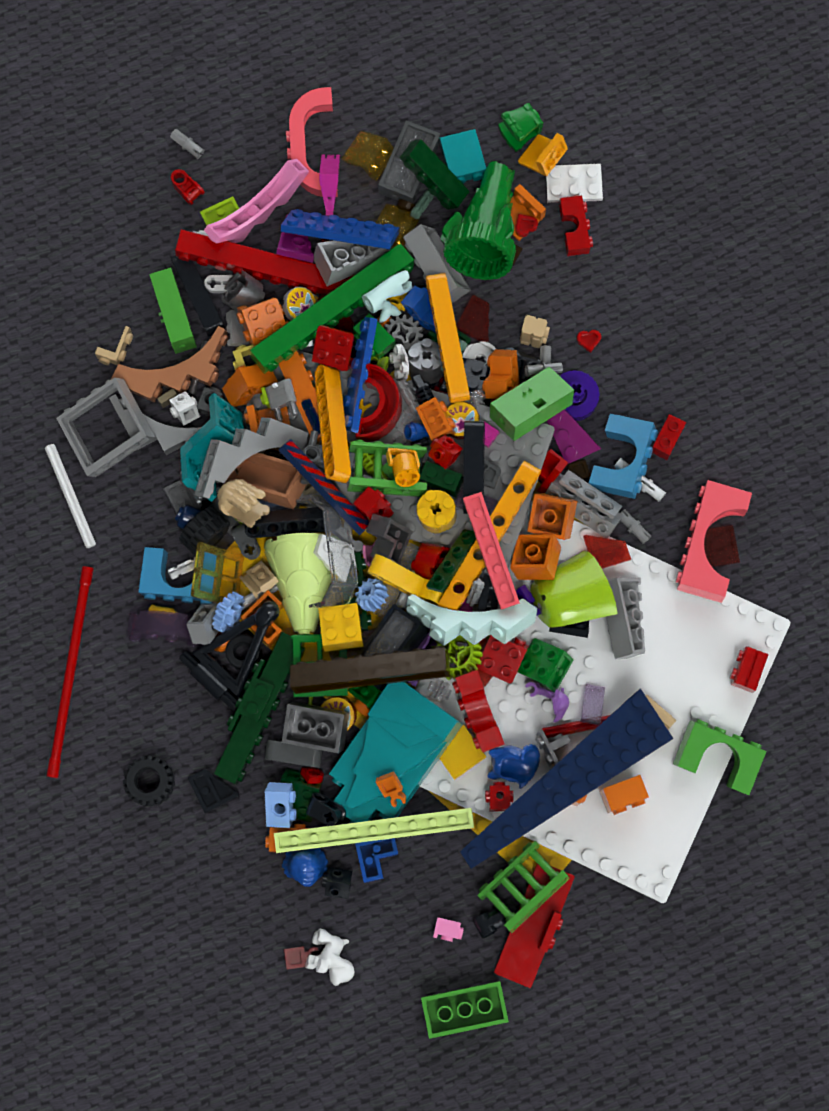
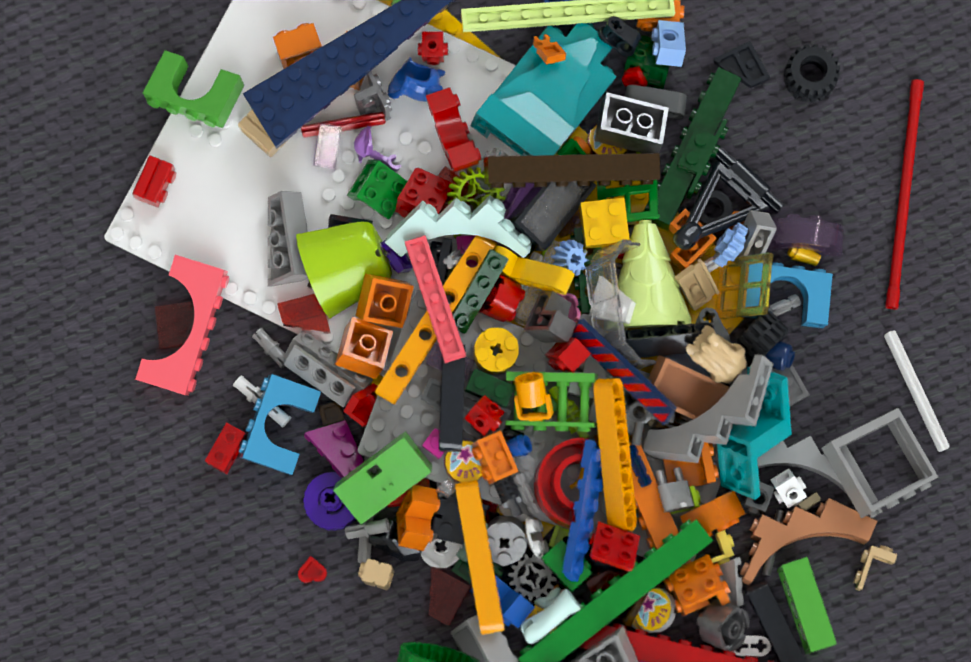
camera: 175 degrees left, 0 degrees up
(461, 754) = (472, 95): yellow tile -> none

